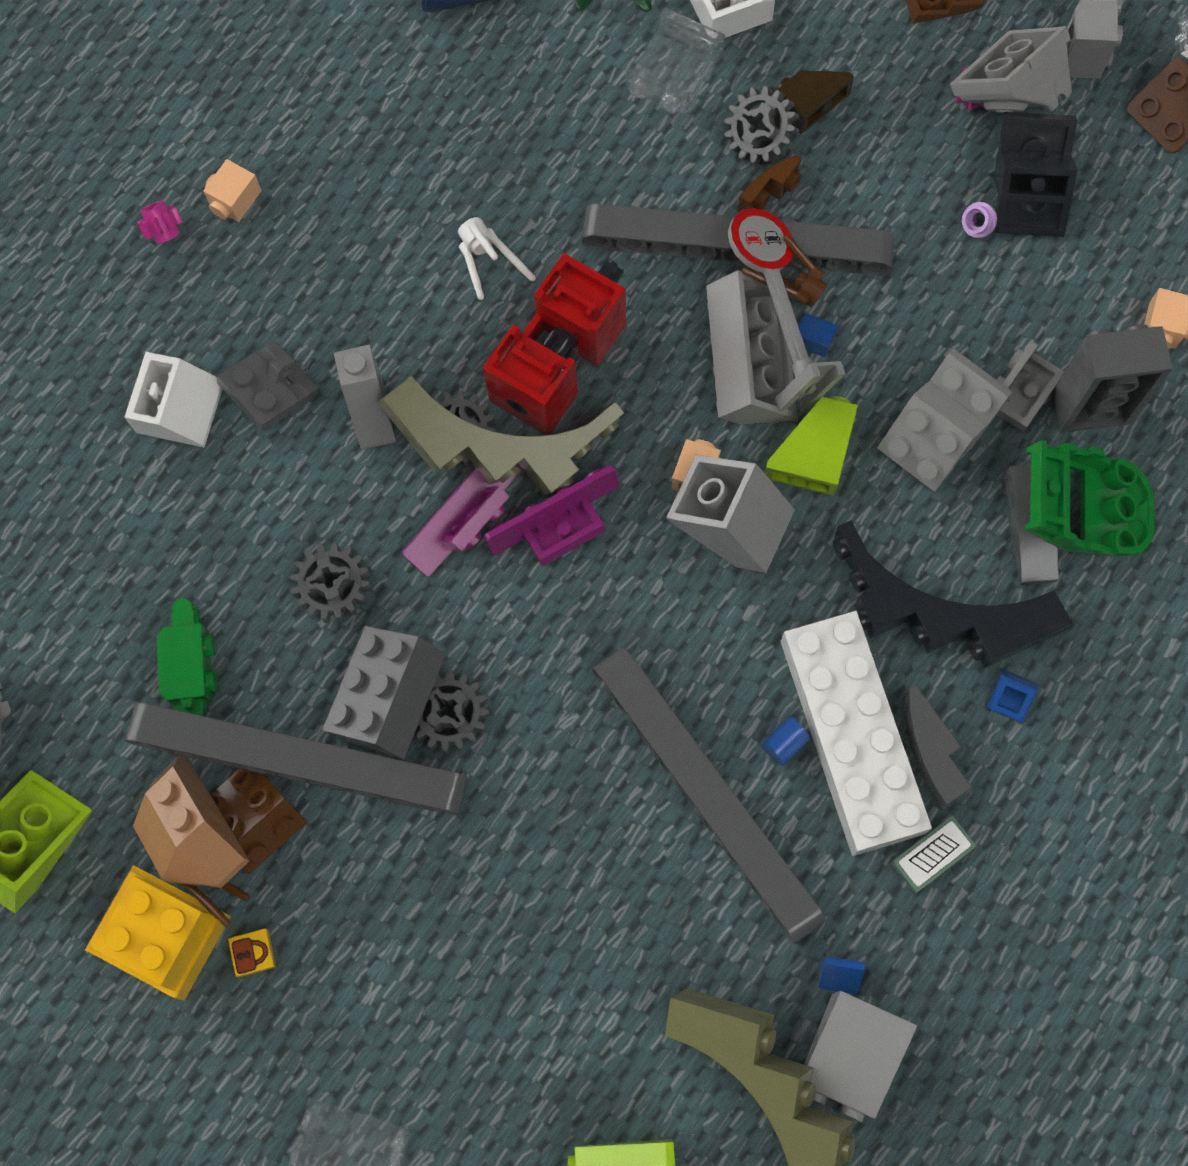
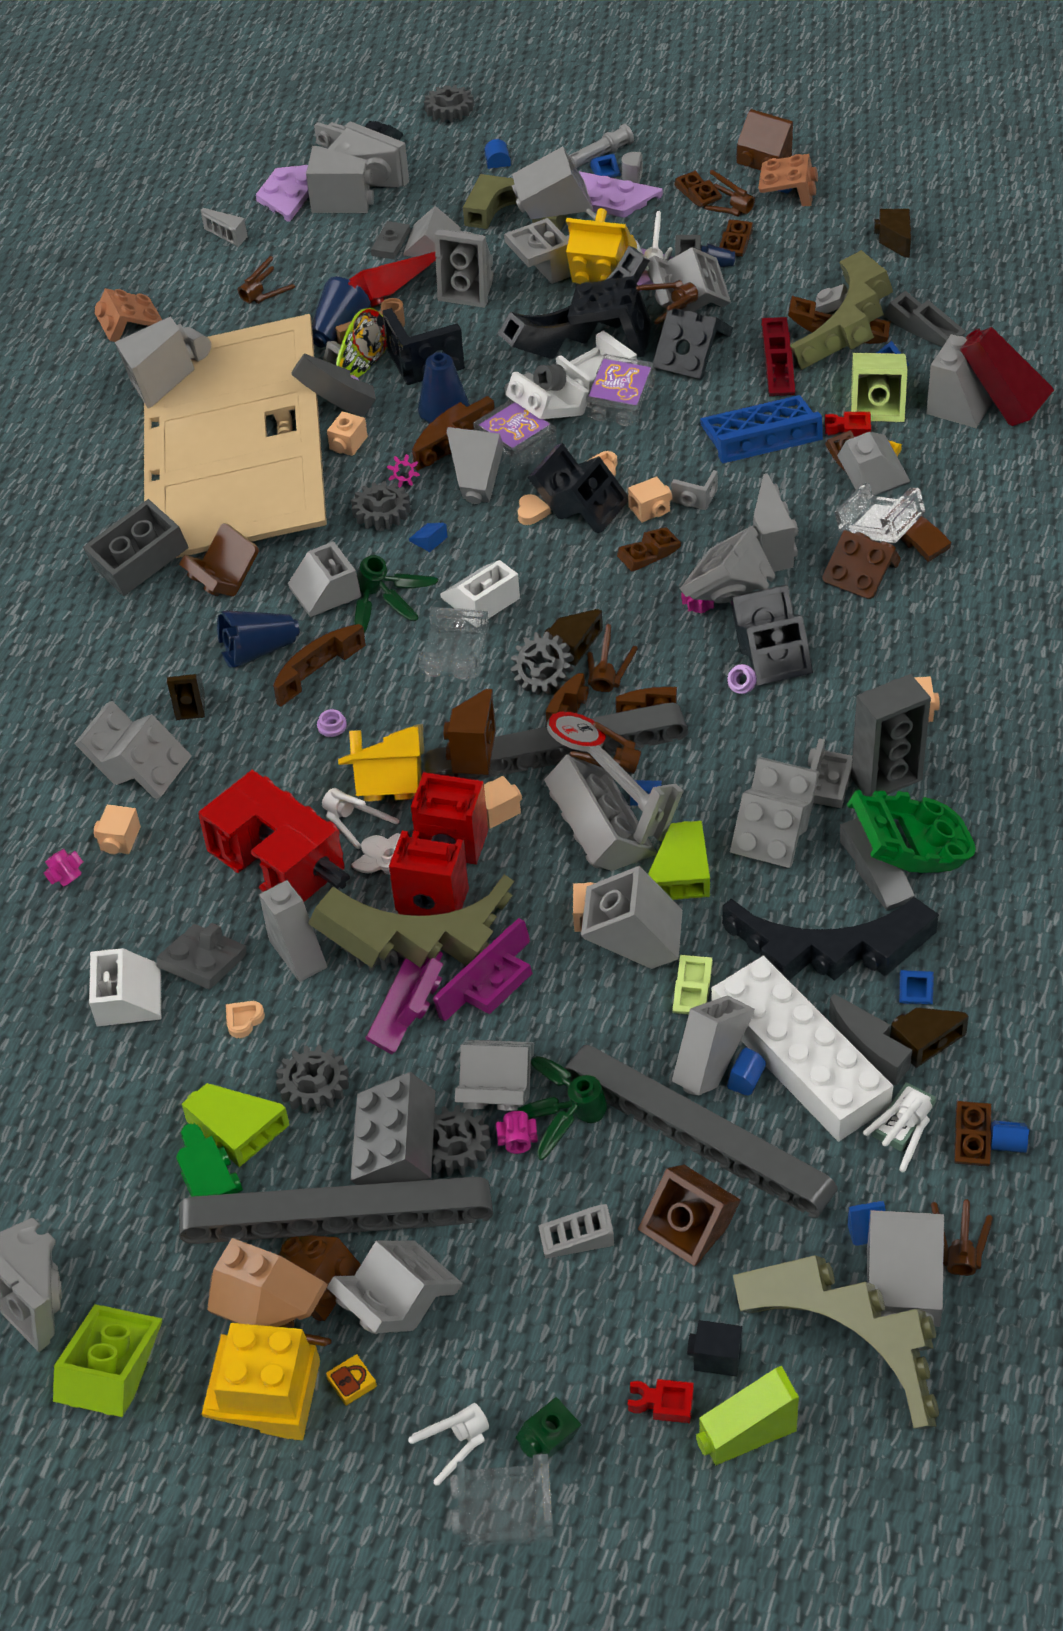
camera: 20 degrees left, 25 degrees down
(232, 606) = (235, 1120): none -> lime slope
(277, 93) = (133, 749): none -> light grey bracket
(287, 475) = (242, 1017): none -> light nougat tile
(324, 872) = (394, 1286): none -> light grey bracket
(346, 1052) = (465, 1424): none -> white plant
(359, 36) = (187, 696): none -> dark brown slope
(406, 291) = (266, 823): none -> red piece
(432, 1102) = (548, 1430): none -> dark green brick
(499, 314) = (377, 854): none -> white plate
(503, 116) = (331, 723): none -> lavender plate
(516, 727) = (516, 1132): none -> dark pink gear
(517, 650) = (494, 1074): none -> light grey bracket
(538, 213) = (387, 766): none -> yellow piece
(552, 18) = (340, 642): none -> reddish brown slope
(557, 1102) = (669, 1400): none -> red plate
(567, 874) = (592, 1240): none -> light grey slope
(601, 727) = (585, 1101): none -> dark green plant
(624, 1066) = (716, 1348): none -> black brick
(641, 210) = (471, 734): none -> reddish brown slope
(647, 294) = (501, 801): none -> light nougat brick
(659, 891) = (688, 1213): none -> reddish brown slope
(757, 701) = (710, 1043): none -> light grey slope
(770, 608) = (692, 983): none -> yellowish green slope
(825, 163) = (603, 676): none -> reddish brown plant
(858, 214) = (645, 698): none -> reddish brown slope
(927, 1050) = (961, 1256): none -> reddish brown plant
(943, 865) = (911, 1112): none -> white plant
(997, 763) = (928, 1031): none -> dark brown slope
(998, 904) = (972, 1133): none -> reddish brown slope
(1036, 923) = (1009, 1136): none -> blue brick

